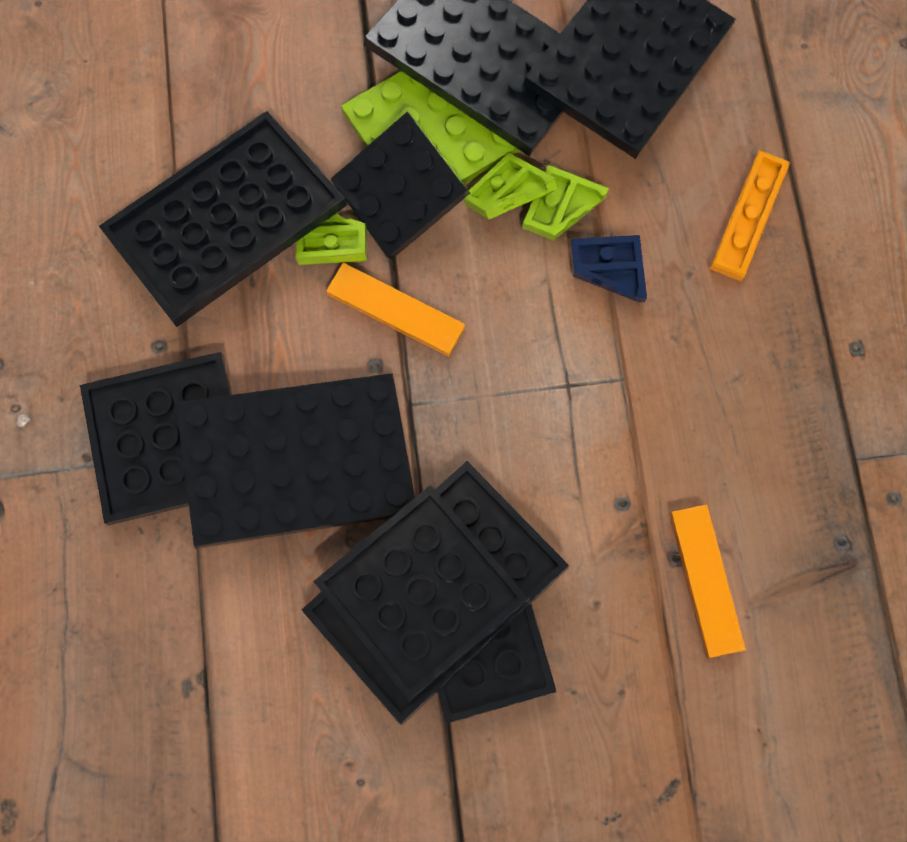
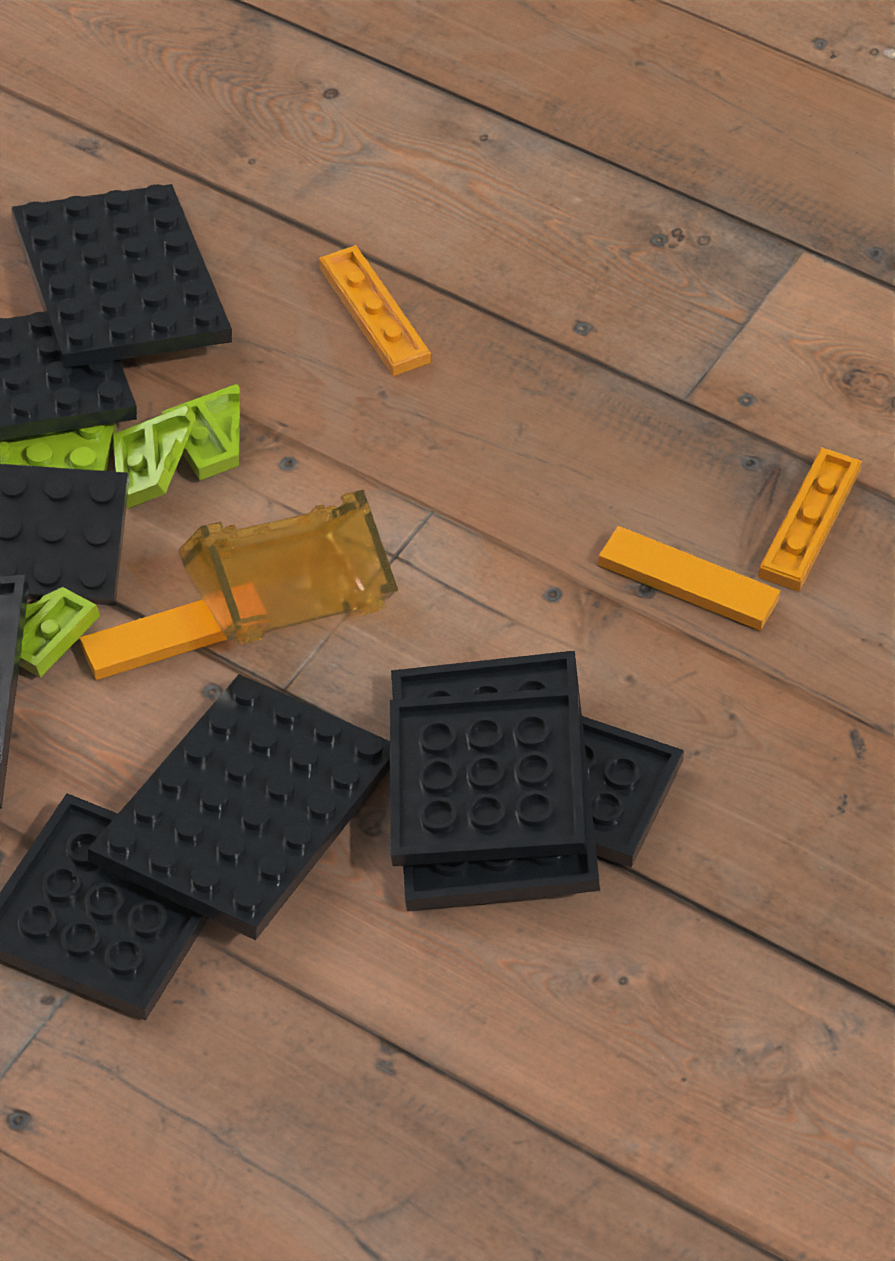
camera: 50 degrees left, 25 degrees down
(484, 340) = (290, 569): none -> clear yellow windscreen
(611, 264) = (312, 436): dark blue wing -> none
(828, 620) = (809, 519): none -> light orange tile

